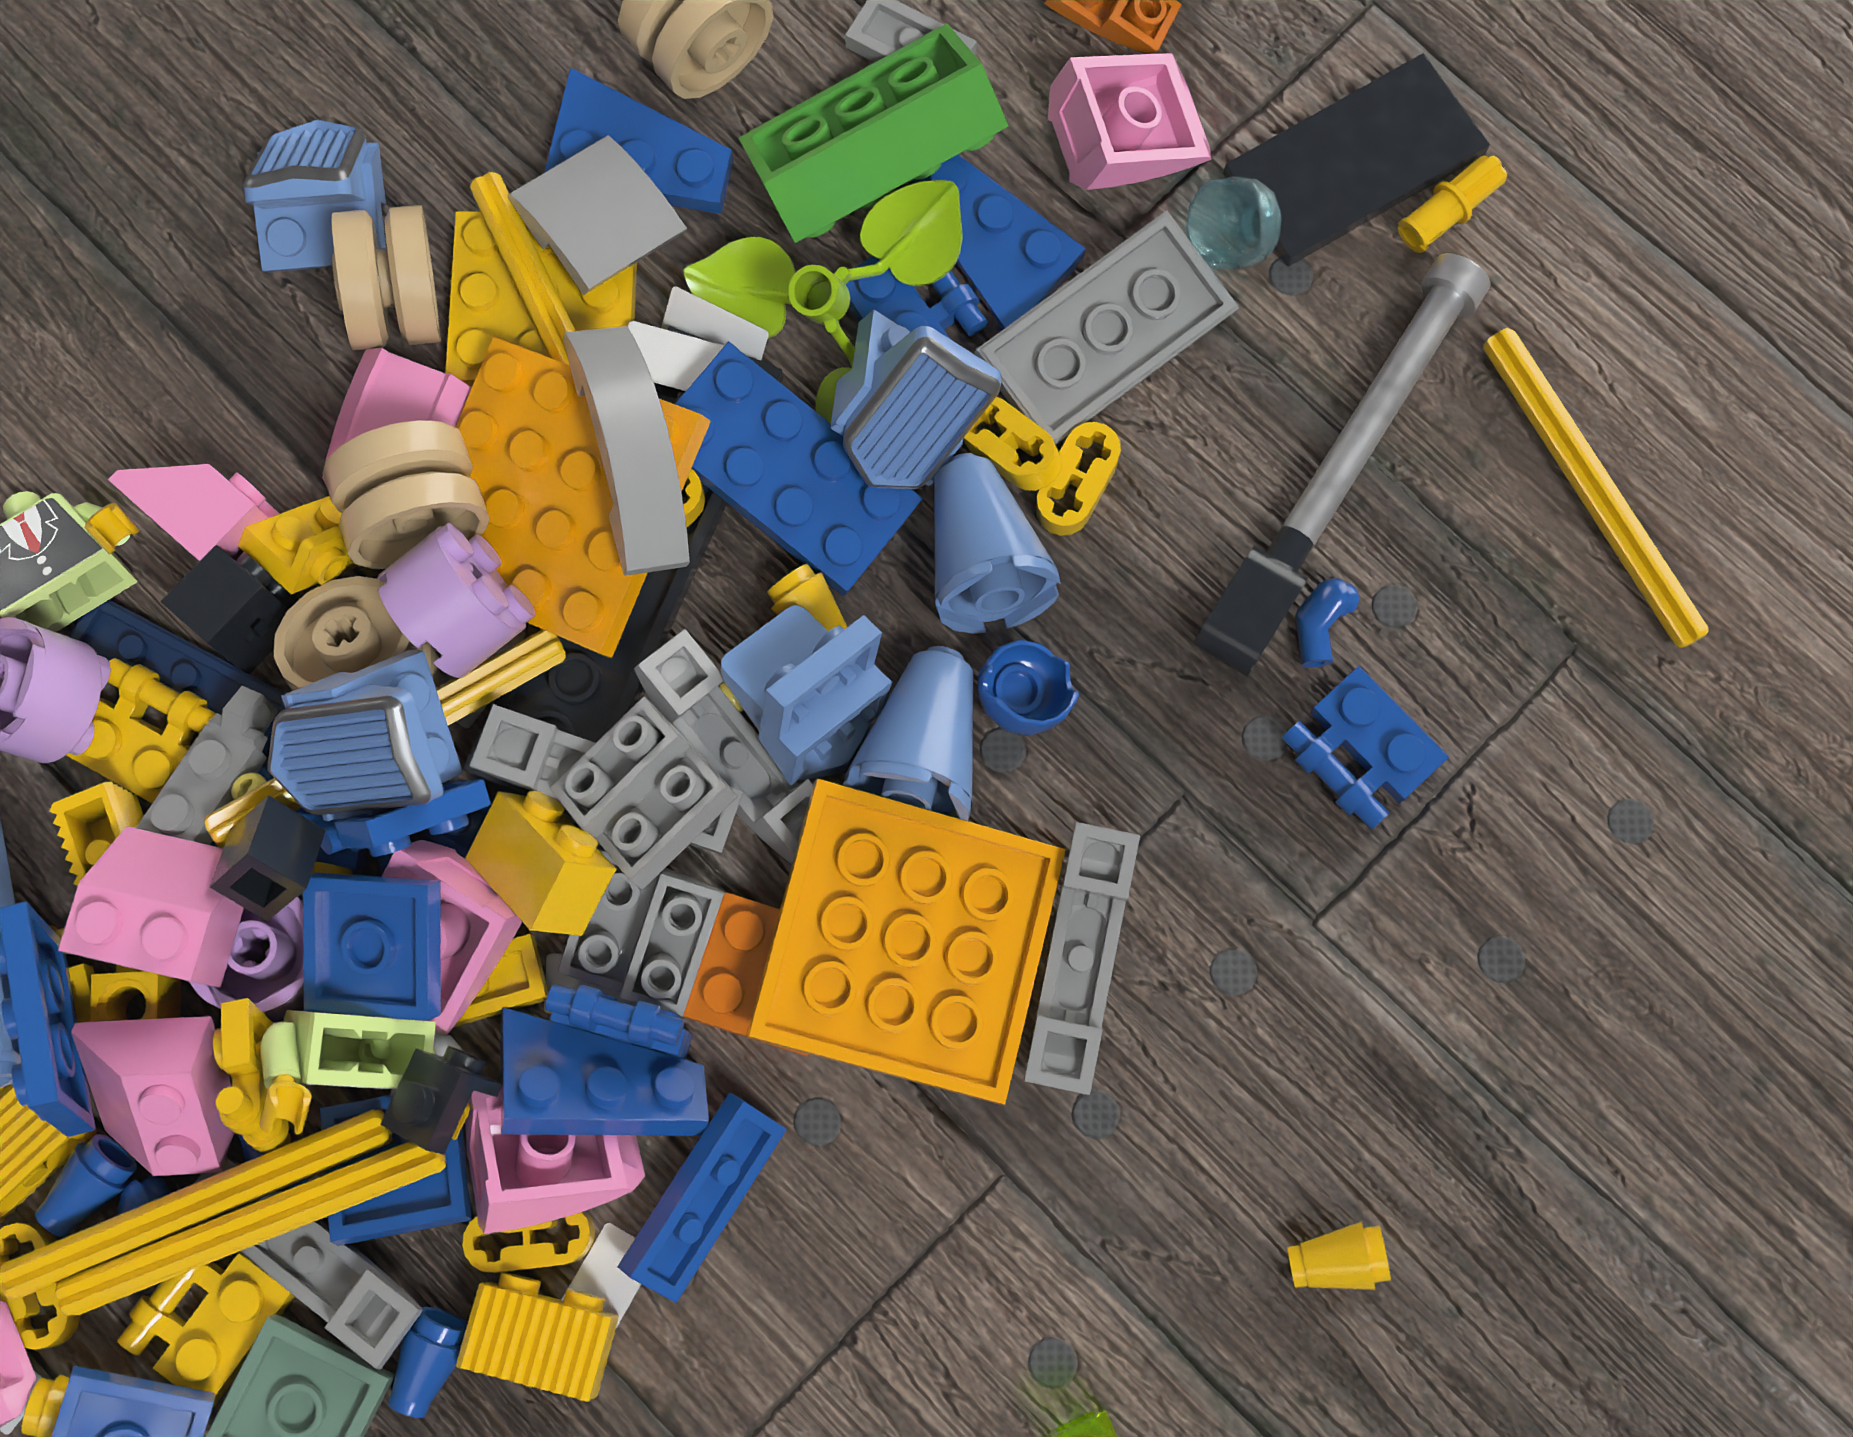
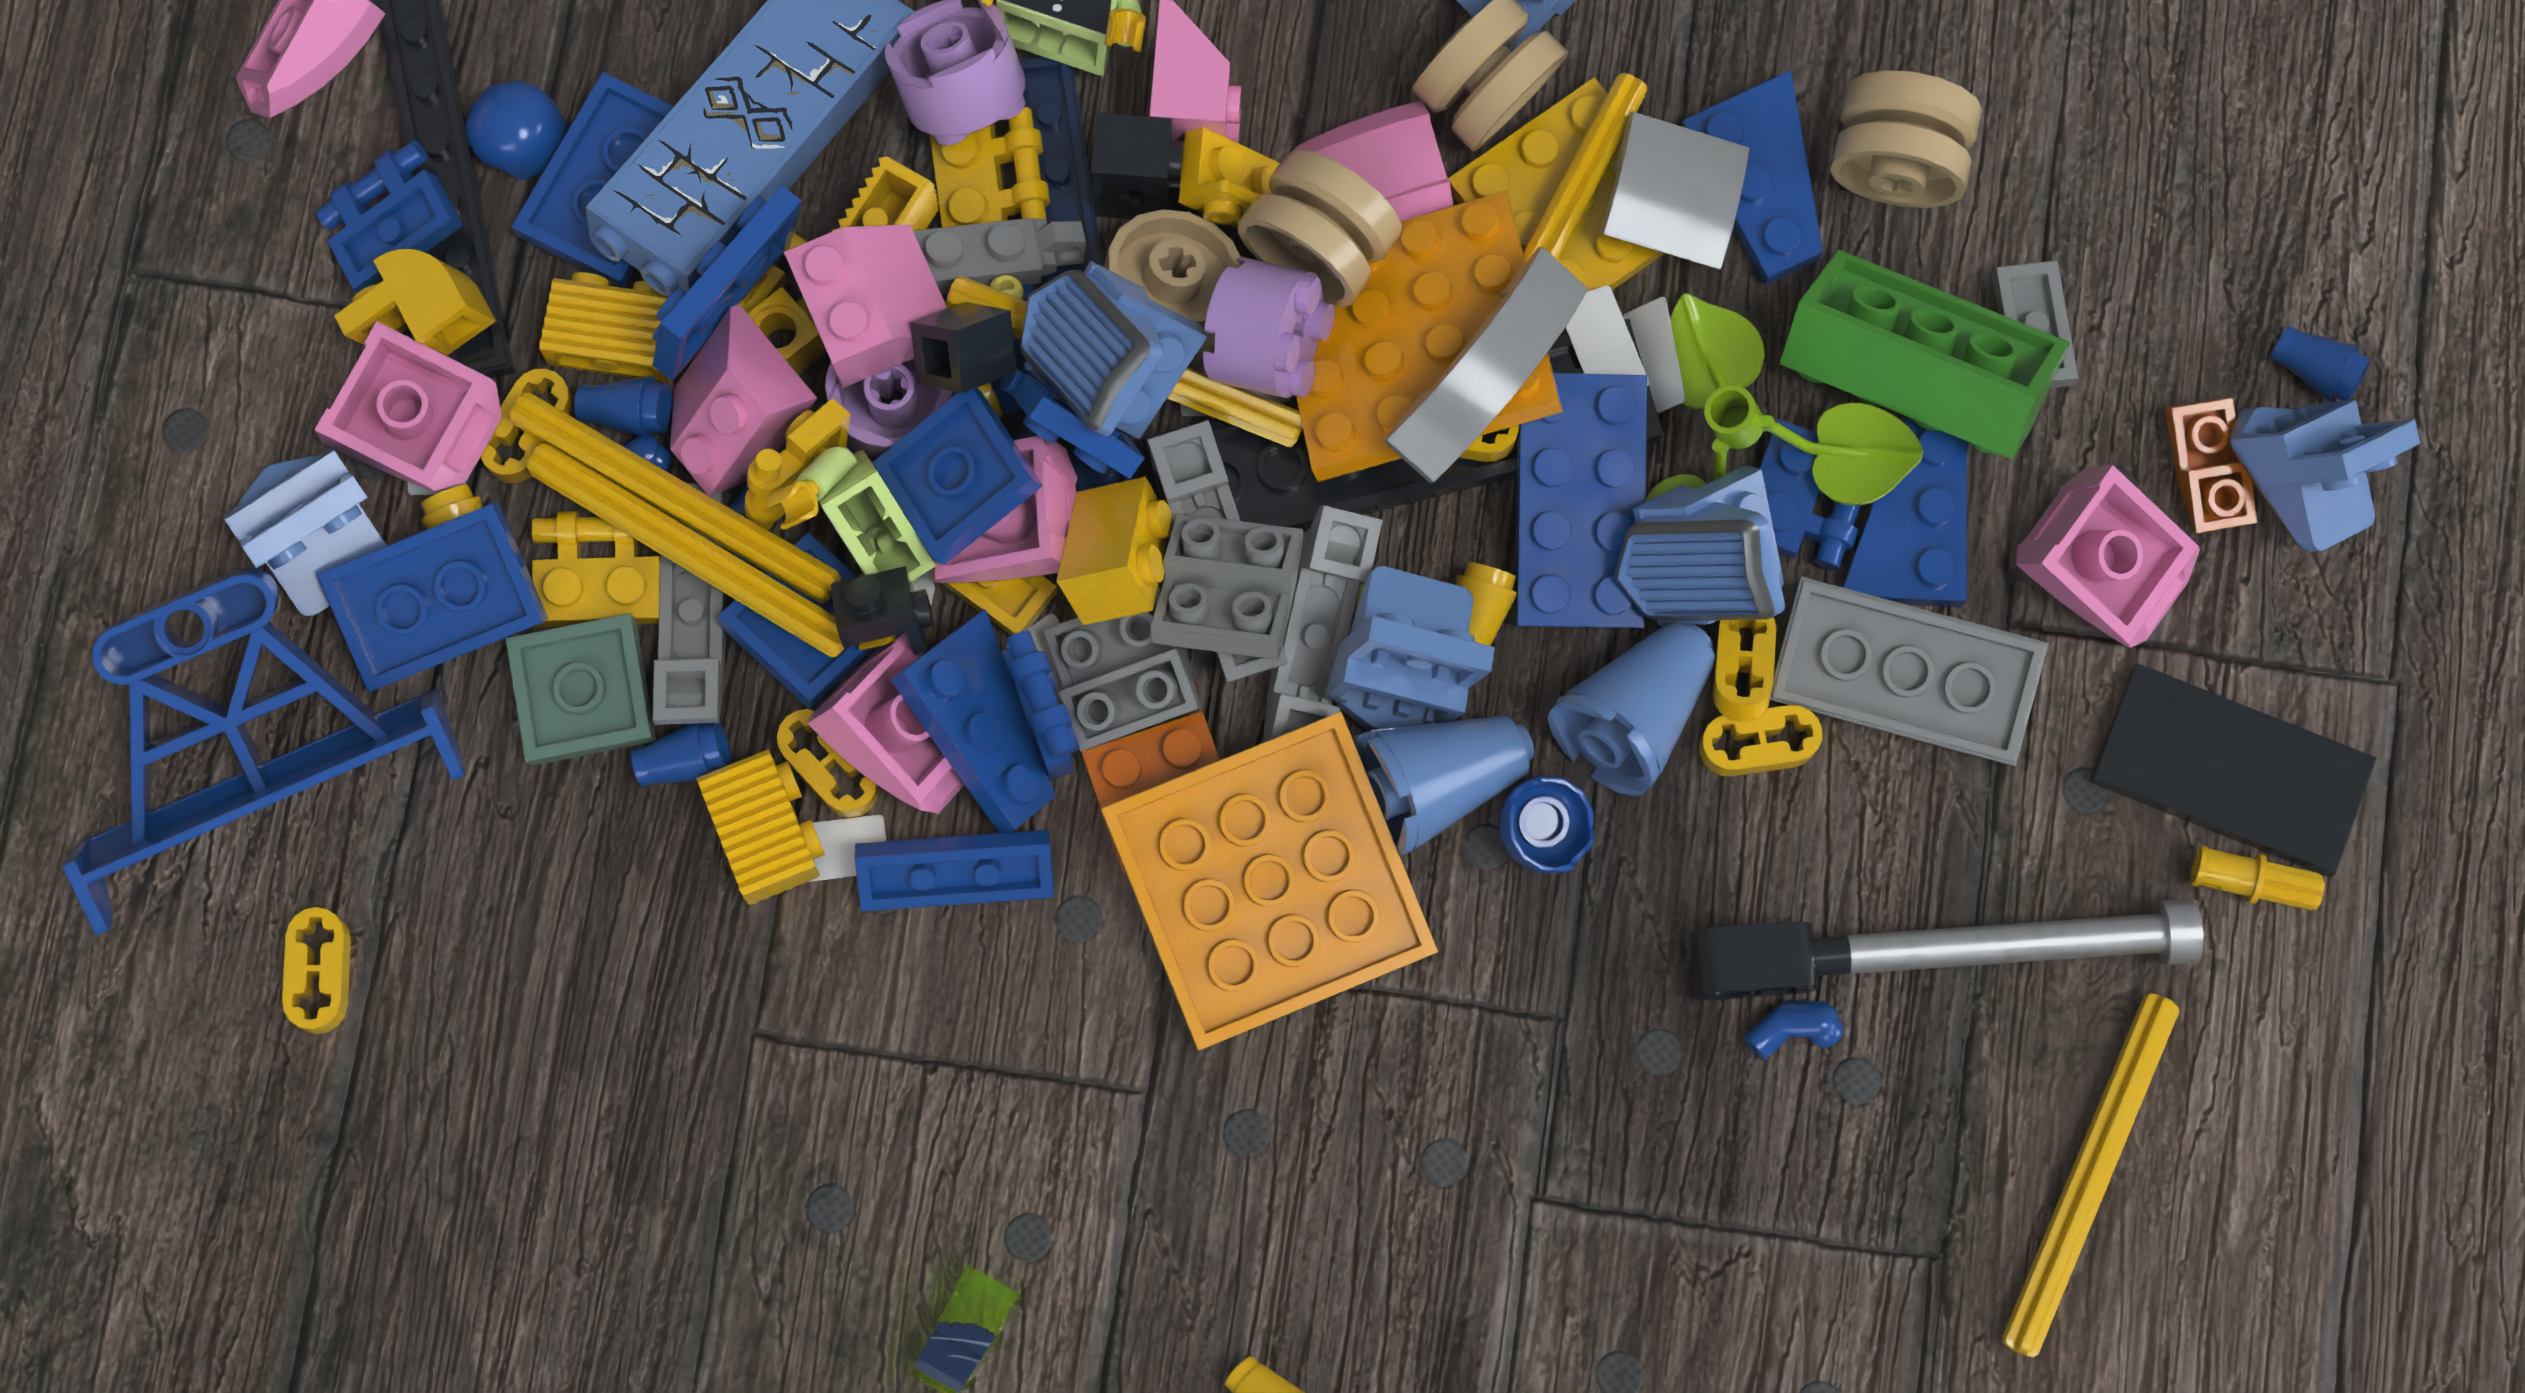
camera: 50 degrees right, 0 degrees up
(1081, 958) = (1360, 1028): light grey slope -> none
(1234, 222) = (2082, 706): clear light blue hair -> none
(1376, 736) = (1729, 1142): blue plate -> none

